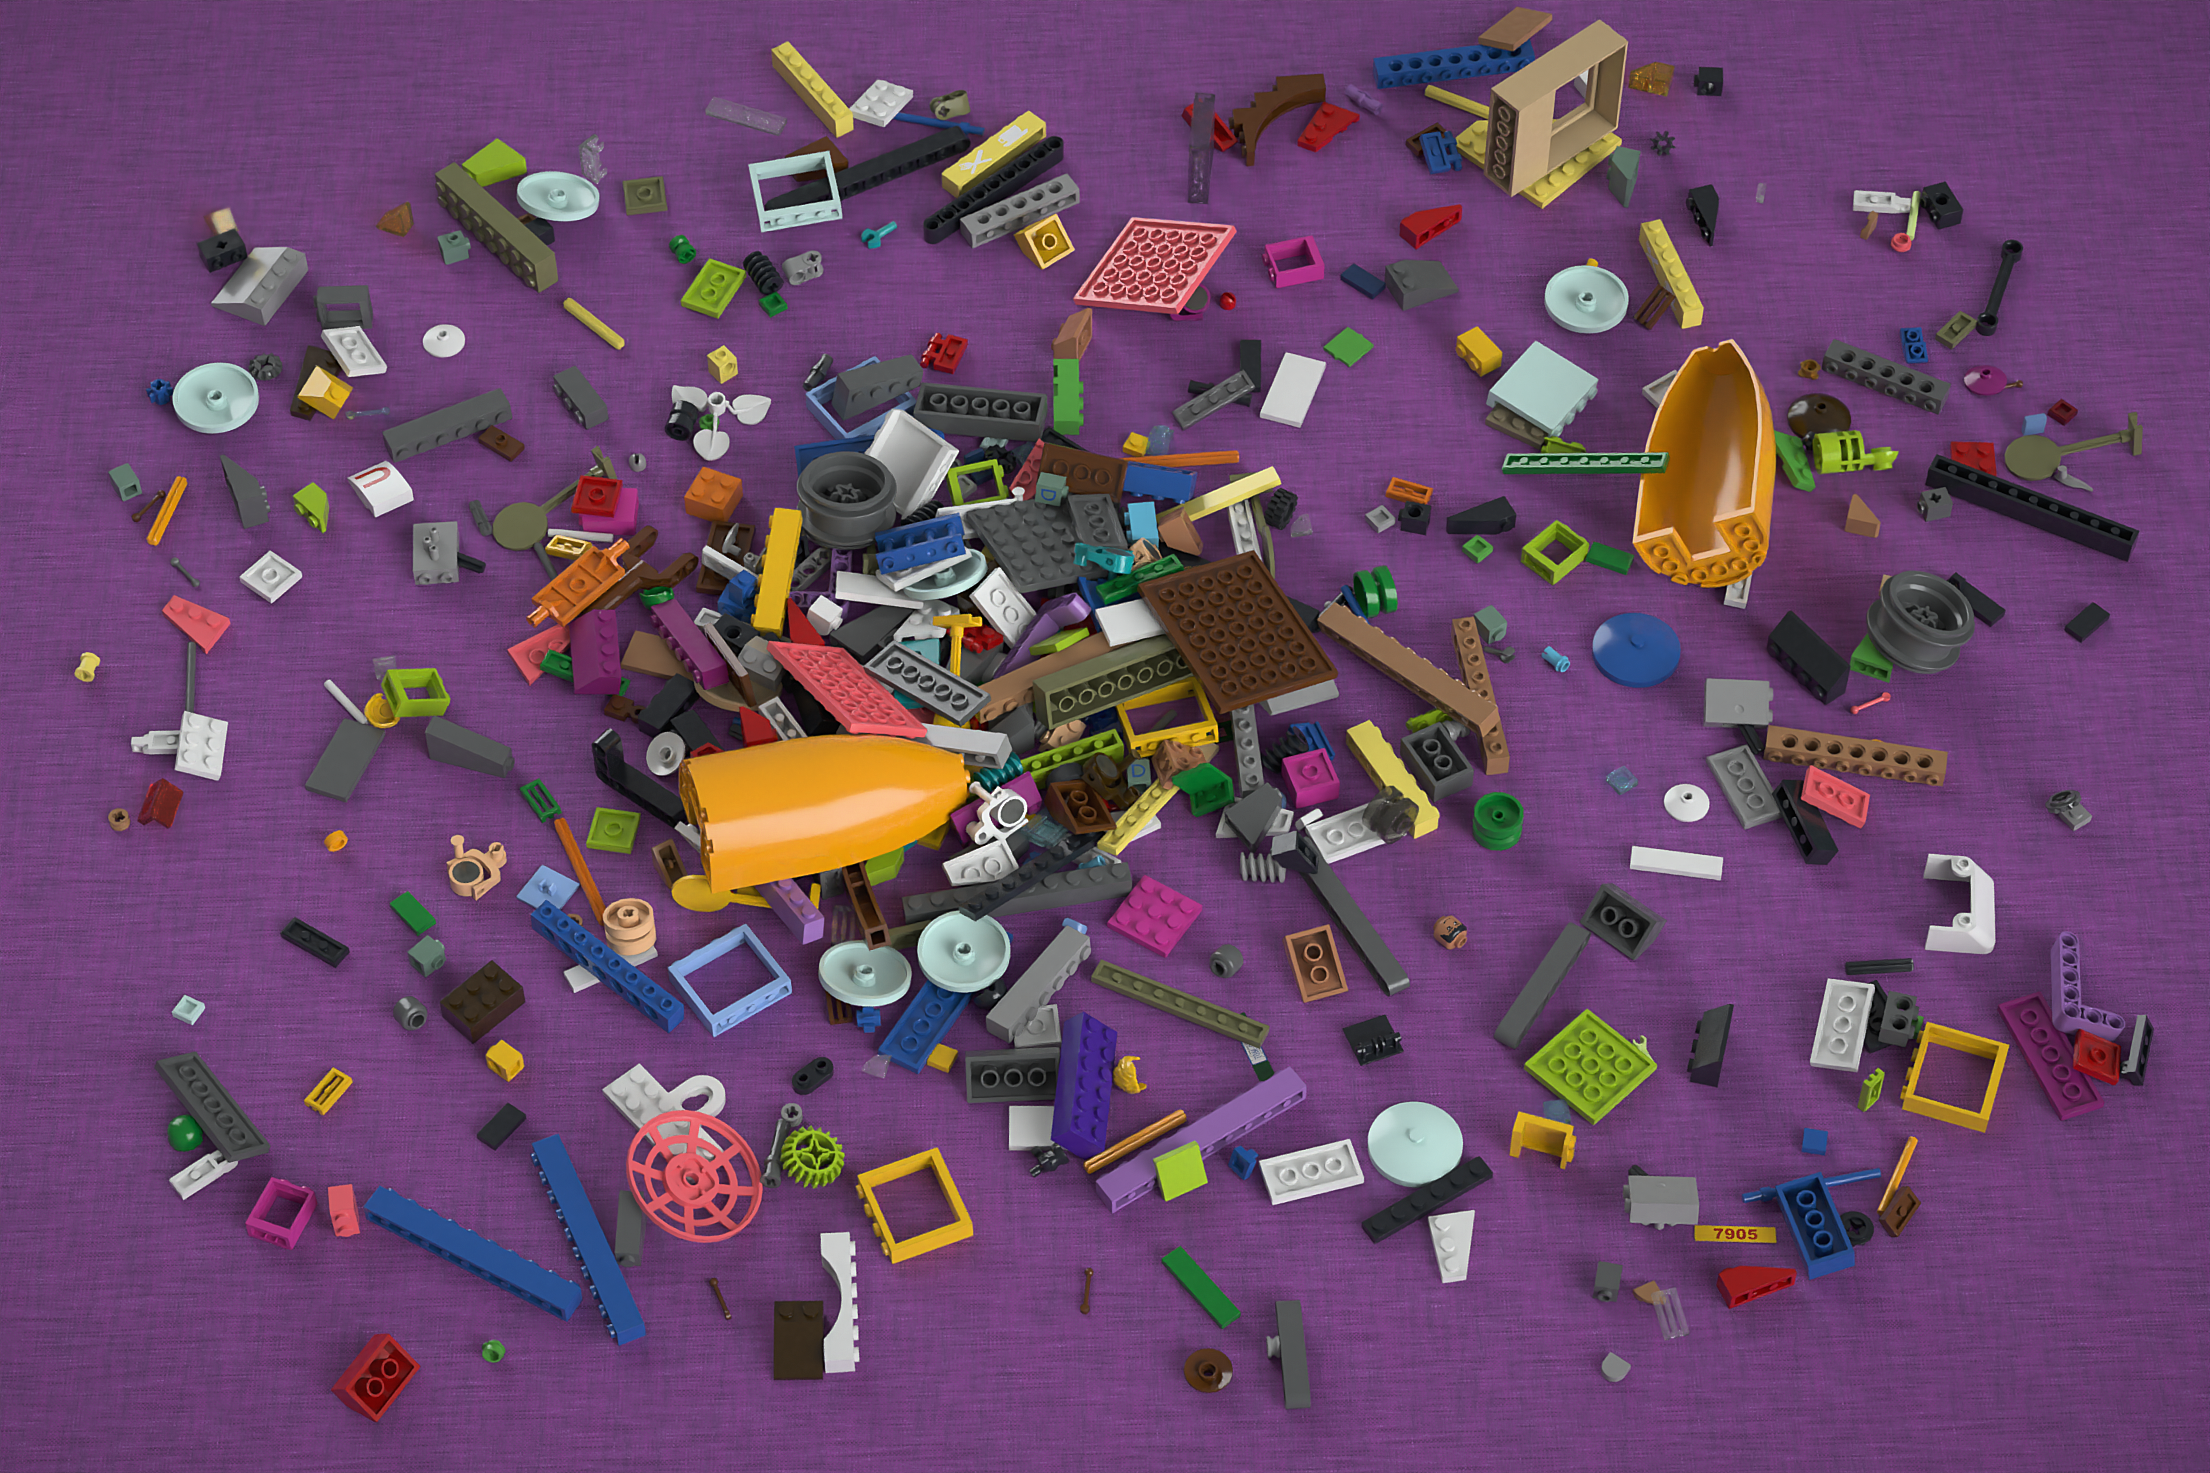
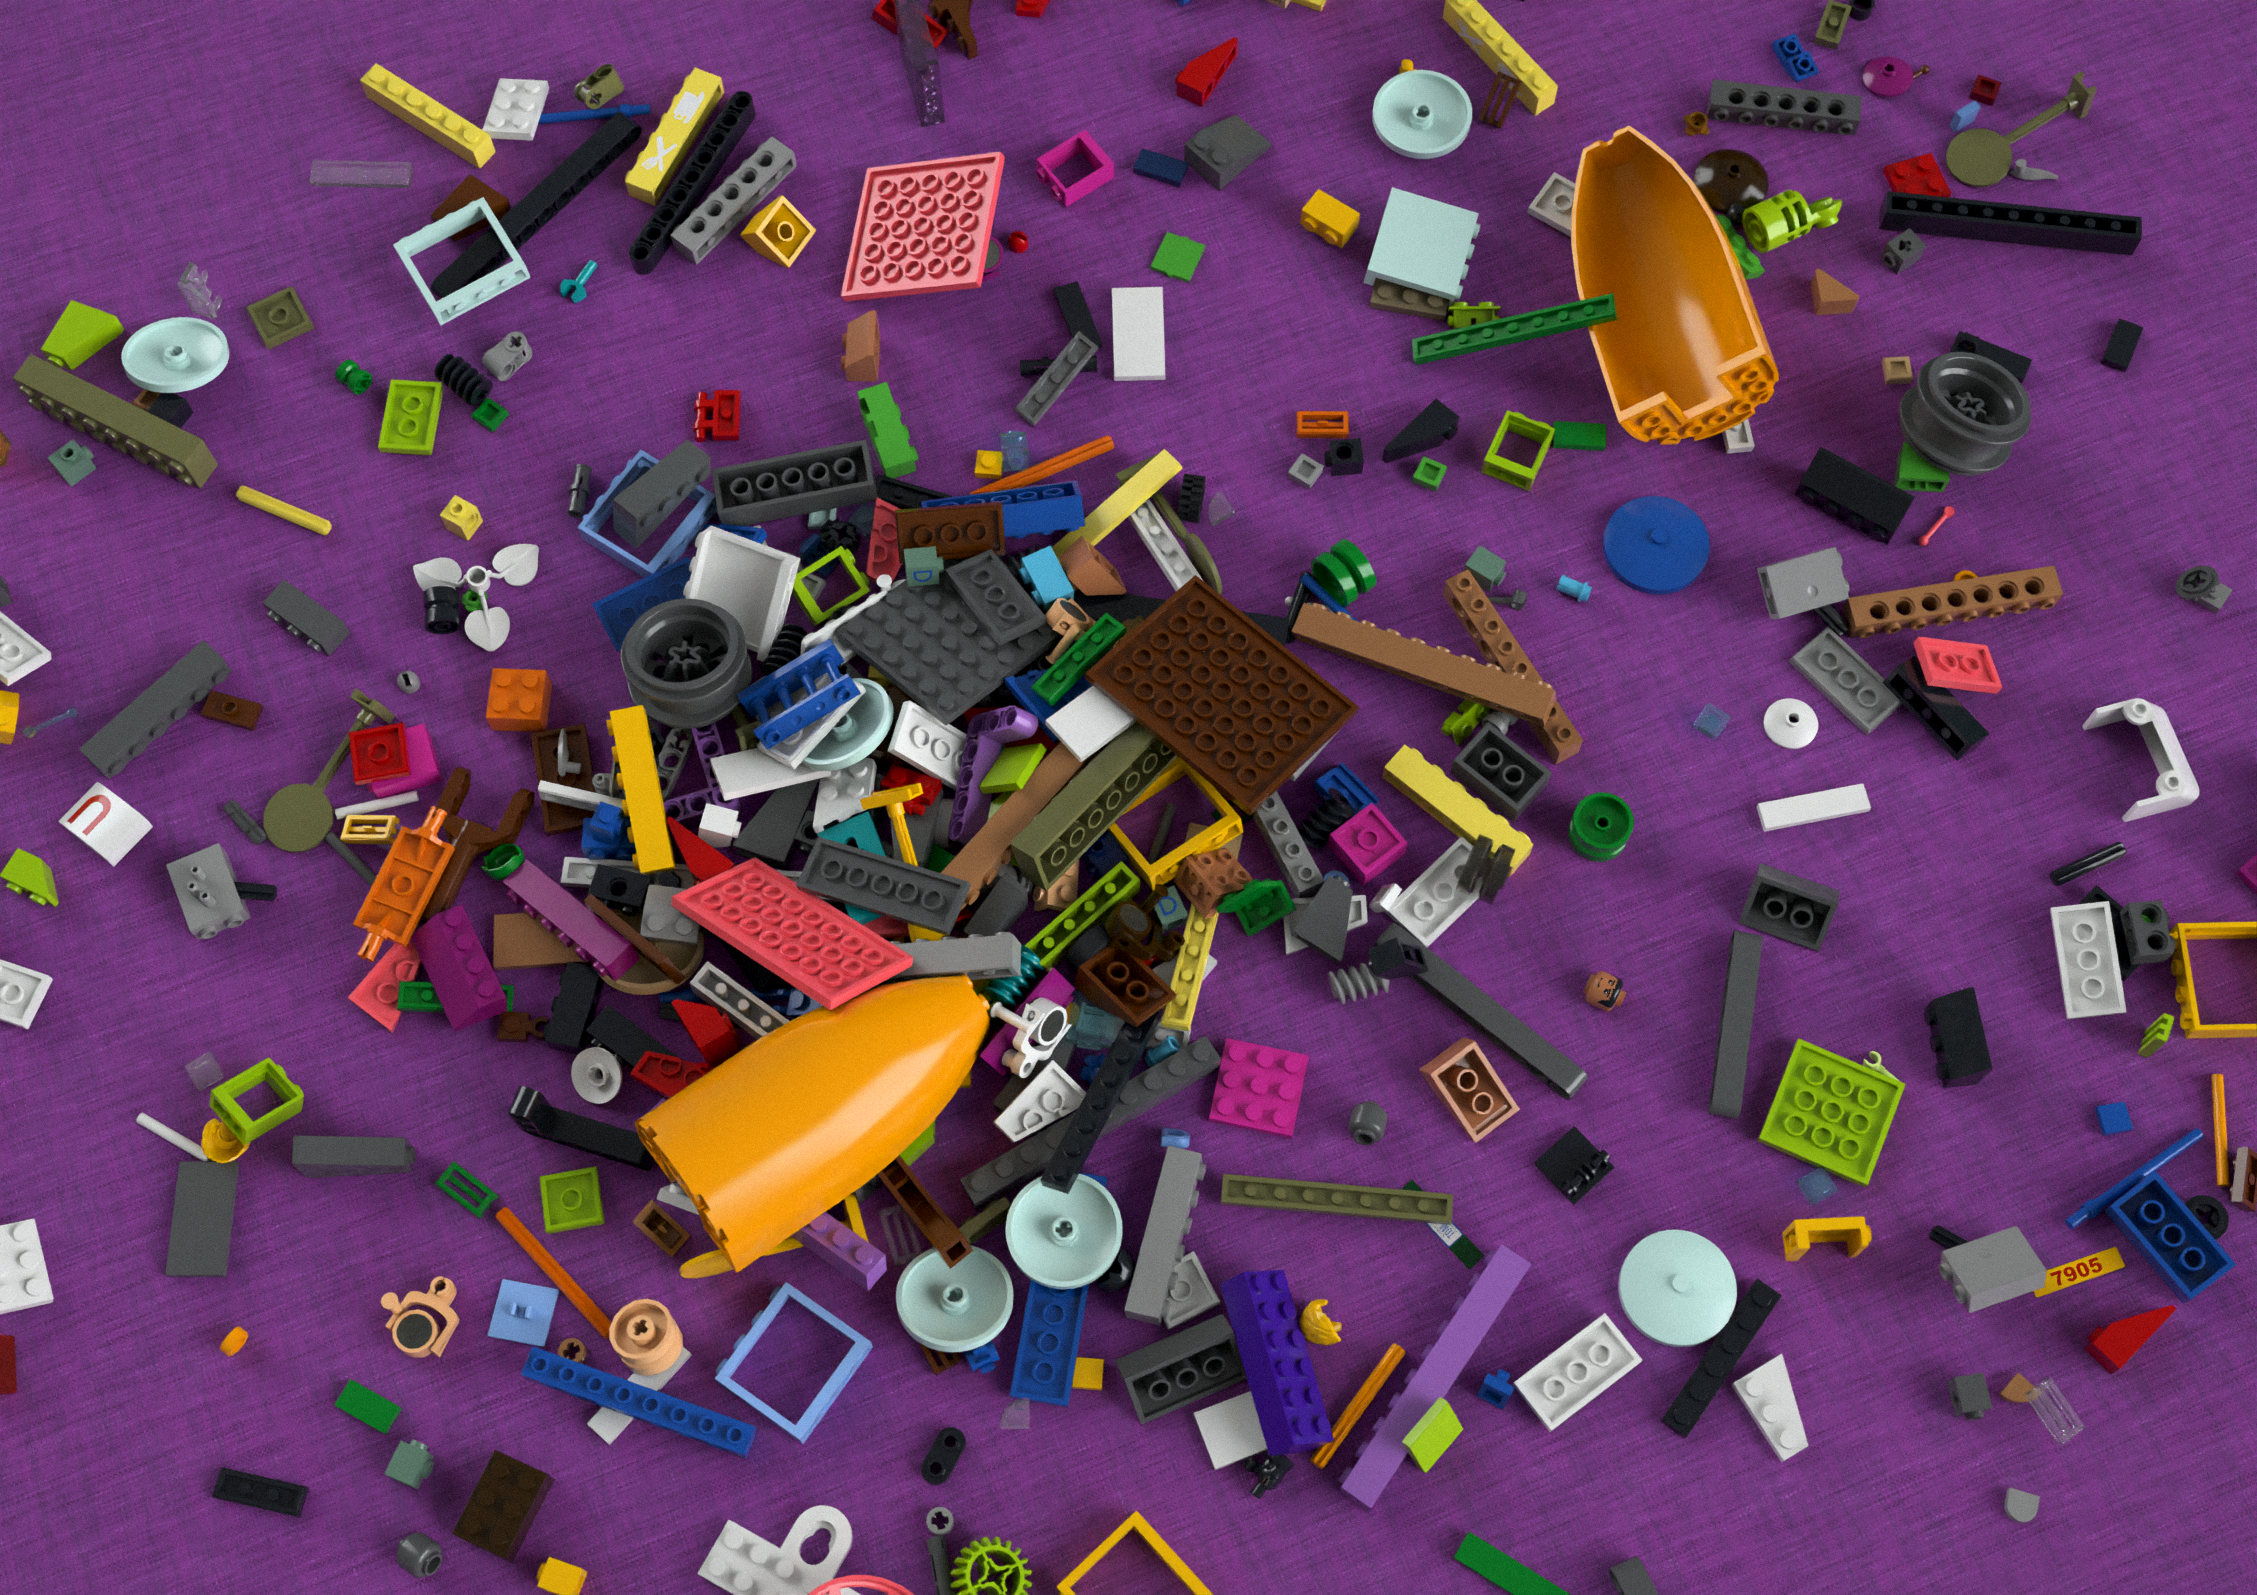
camera: 20 degrees left, 15 degrees up
(443, 340) = (113, 599): white dish -> none
(1108, 558) = (1043, 647): teal piece -> none

